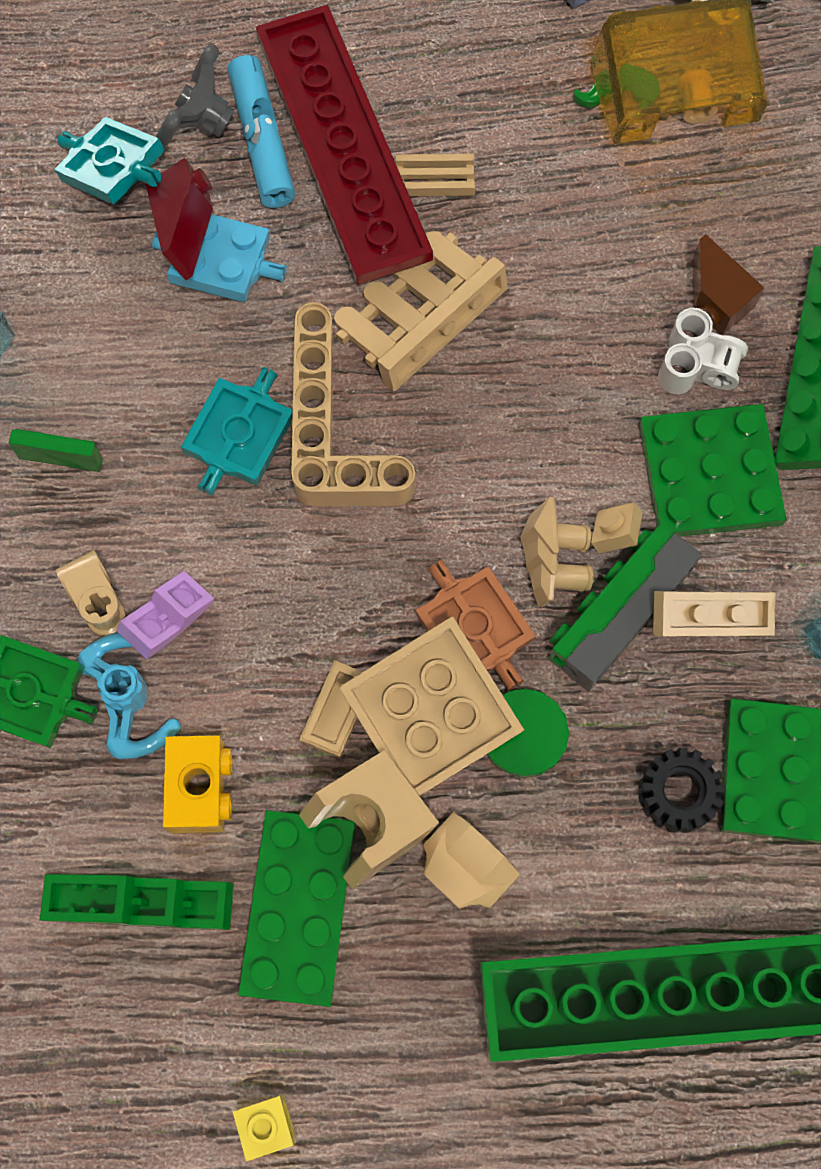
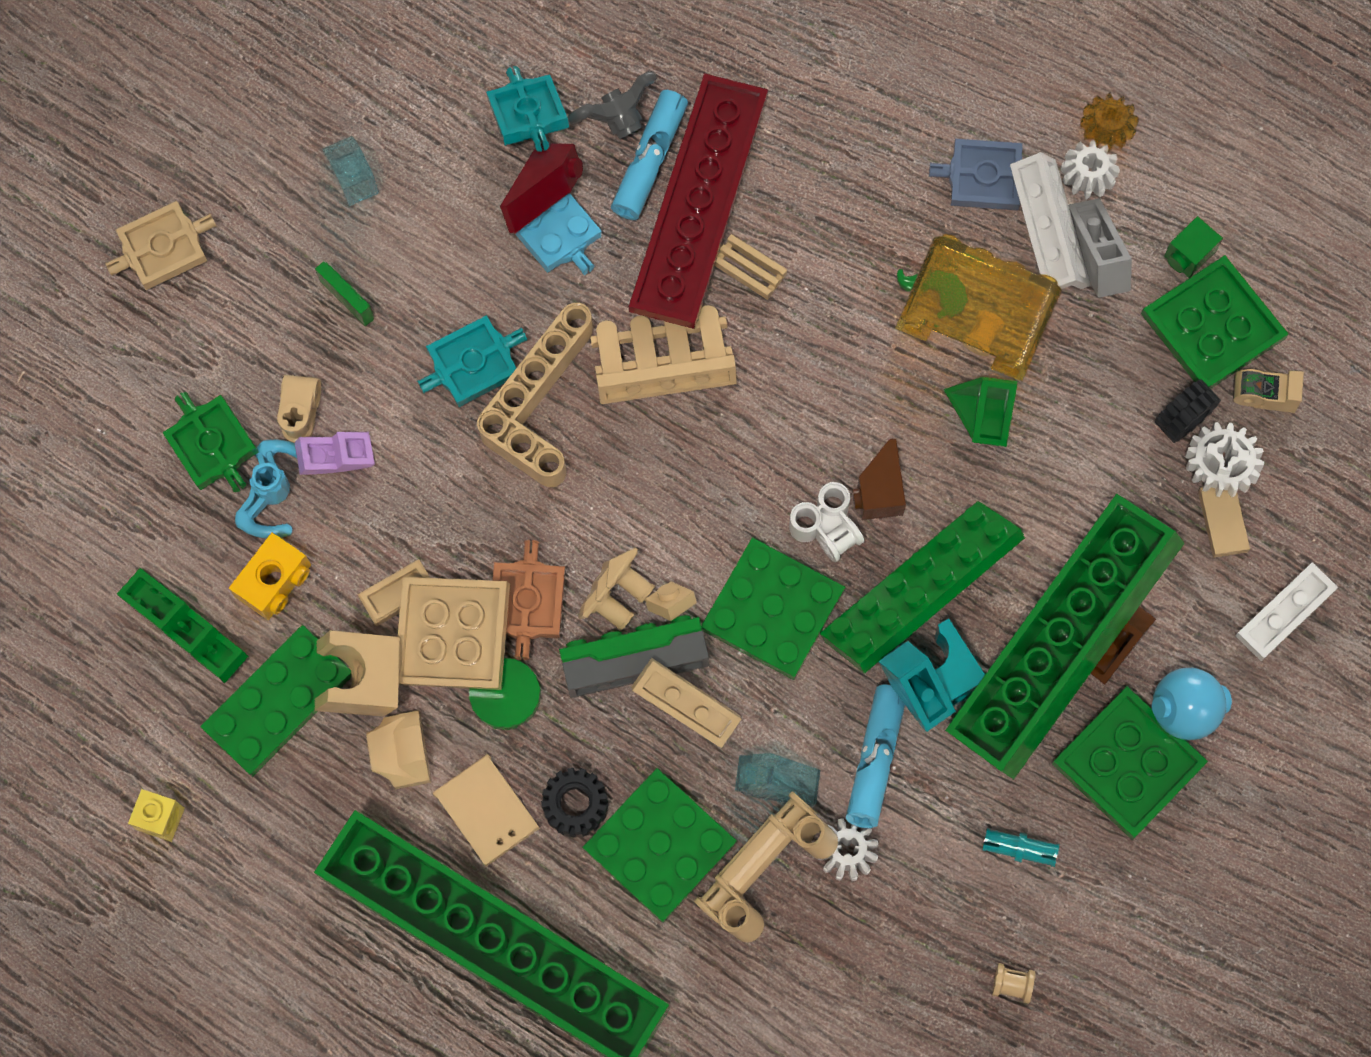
camera: 40 degrees right, 0 degrees up
(598, 863) = (486, 810): none -> tan container
(754, 159) = (985, 408): none -> green slope

